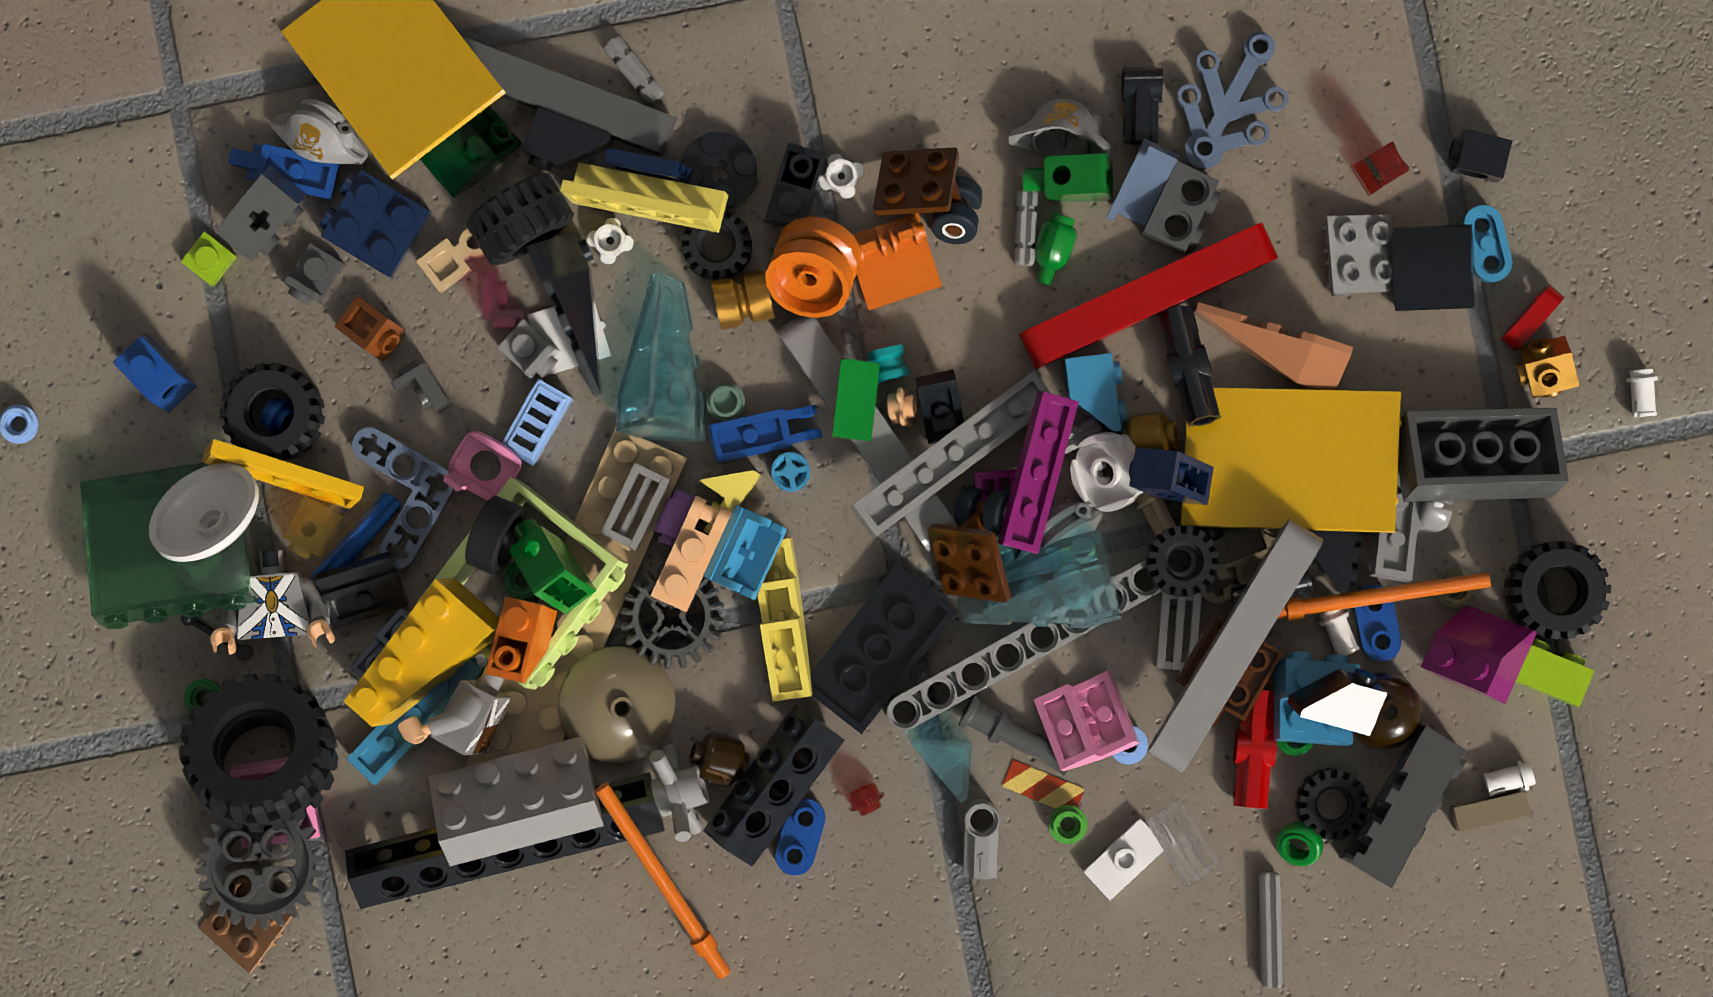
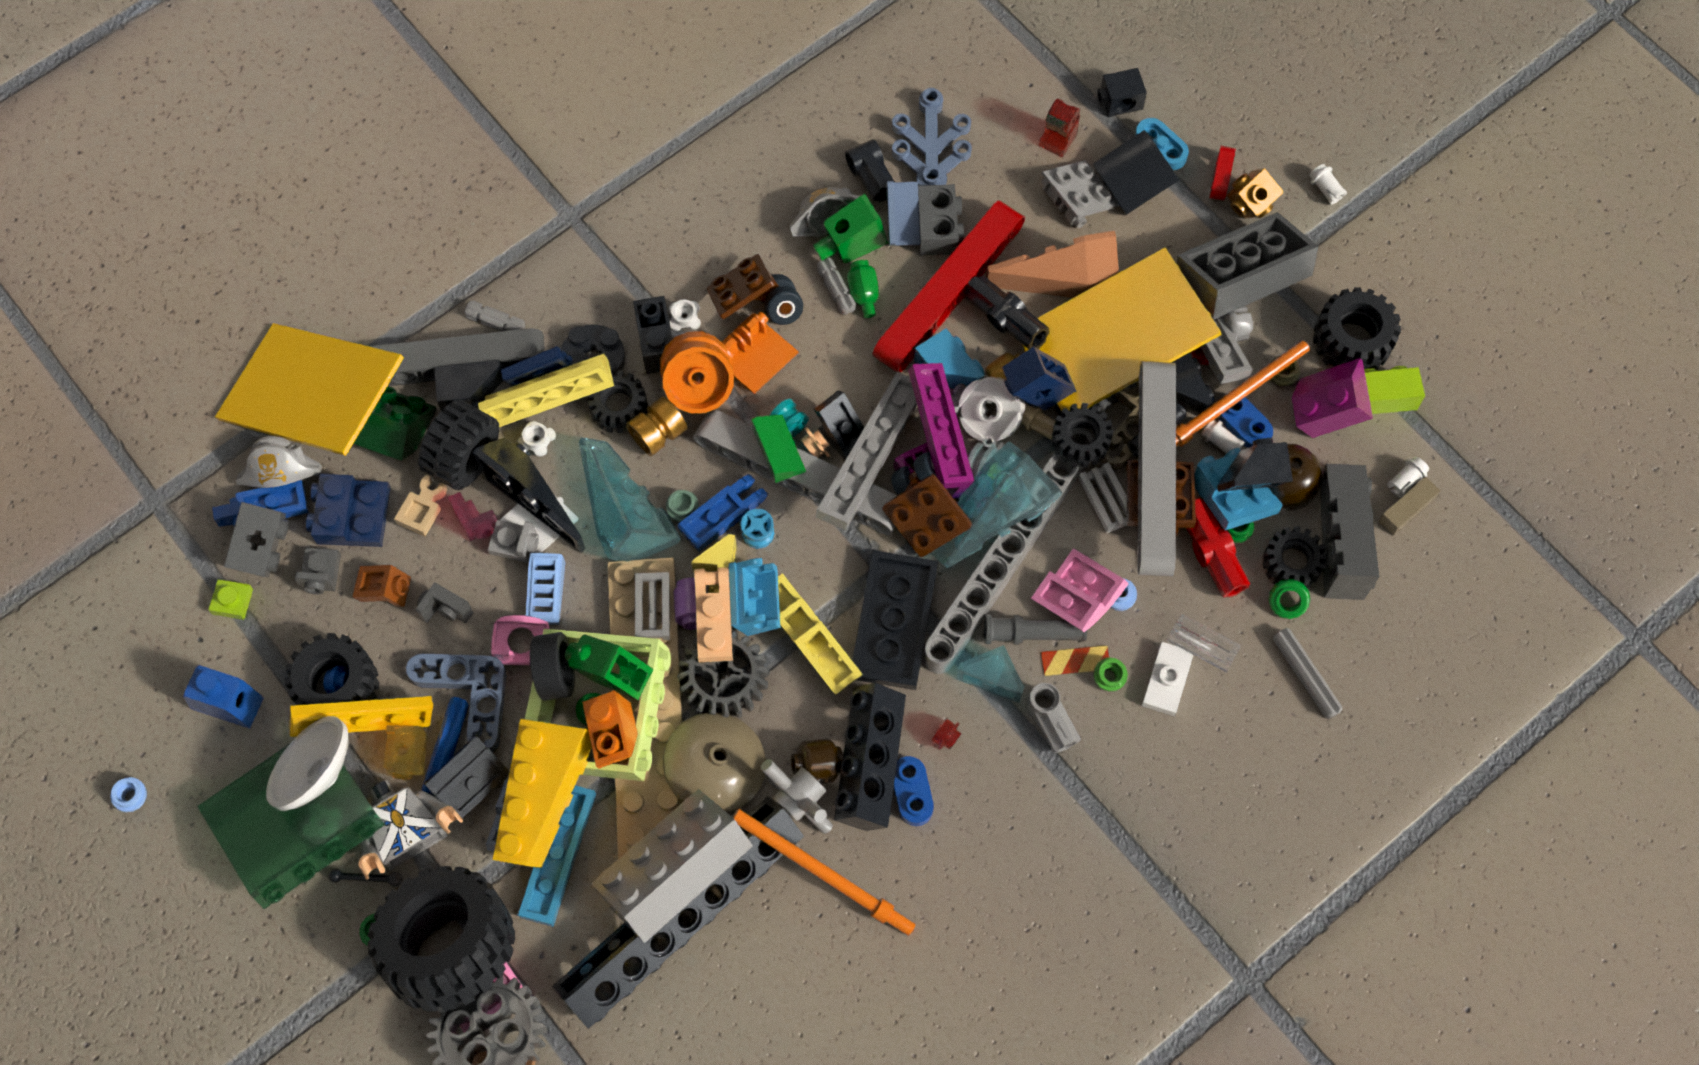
camera: 25 degrees left, 20 degrees down
(468, 719) = (600, 819): light grey torso -> none

